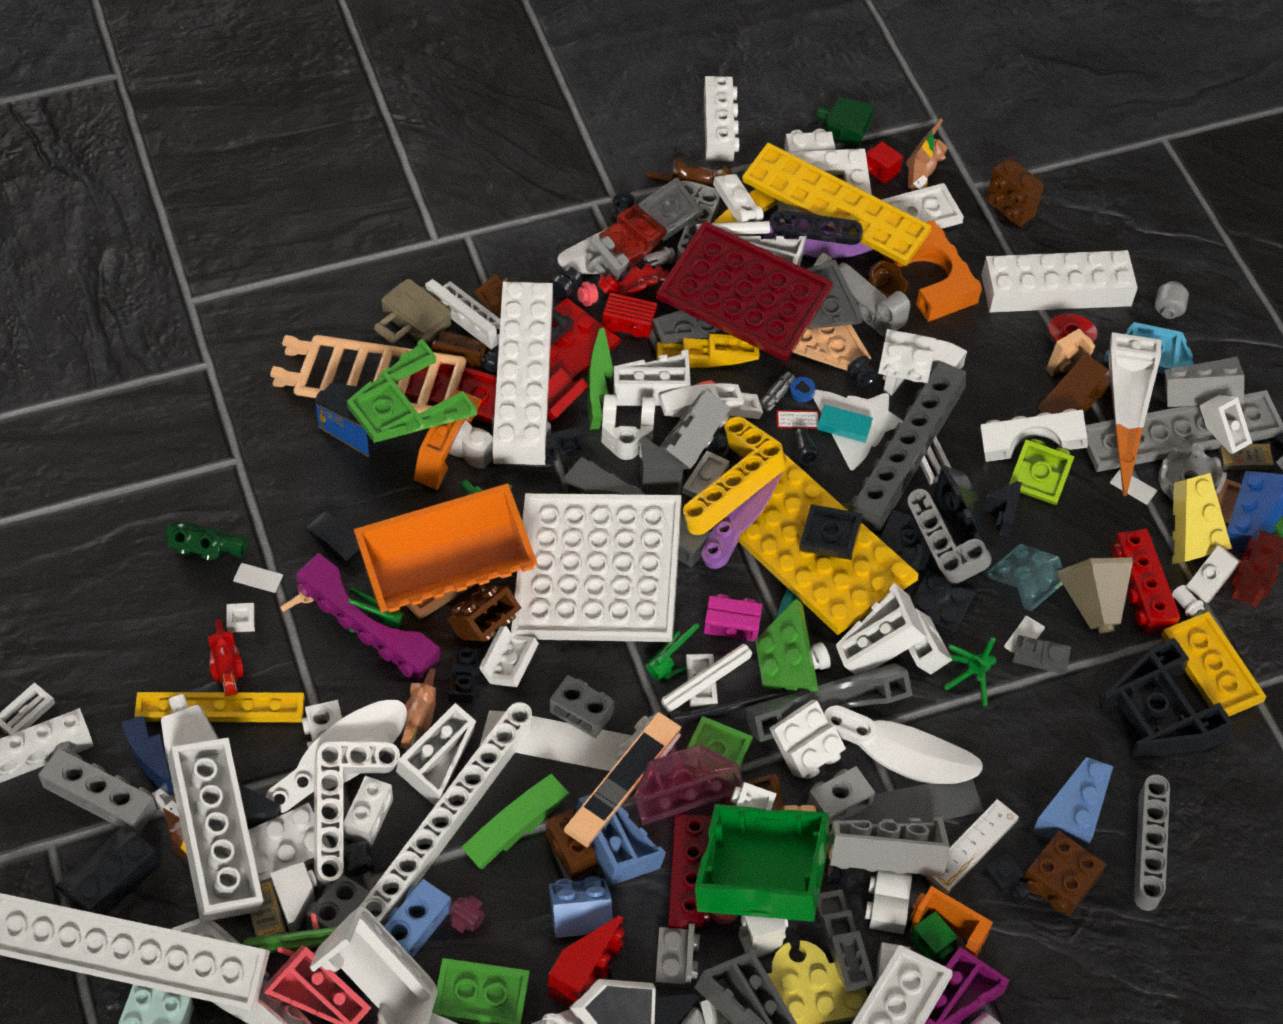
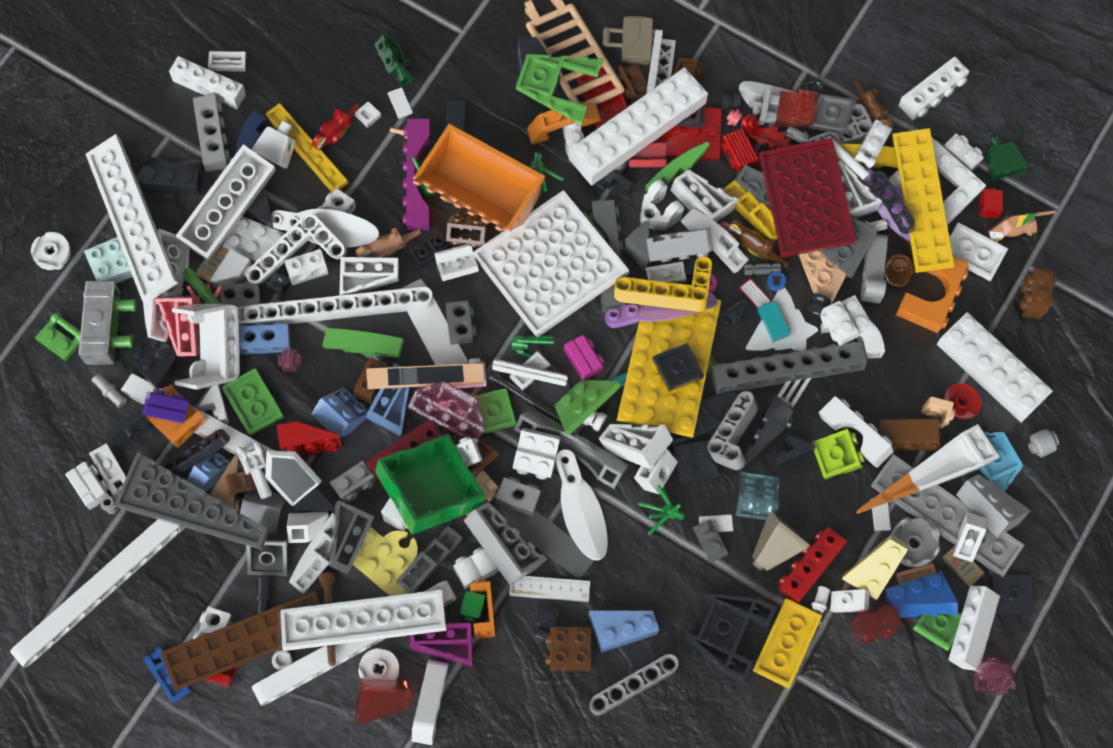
camera: 50 degrees right, 15 degrees up
(746, 374) = (756, 243): none -> reddish brown animal

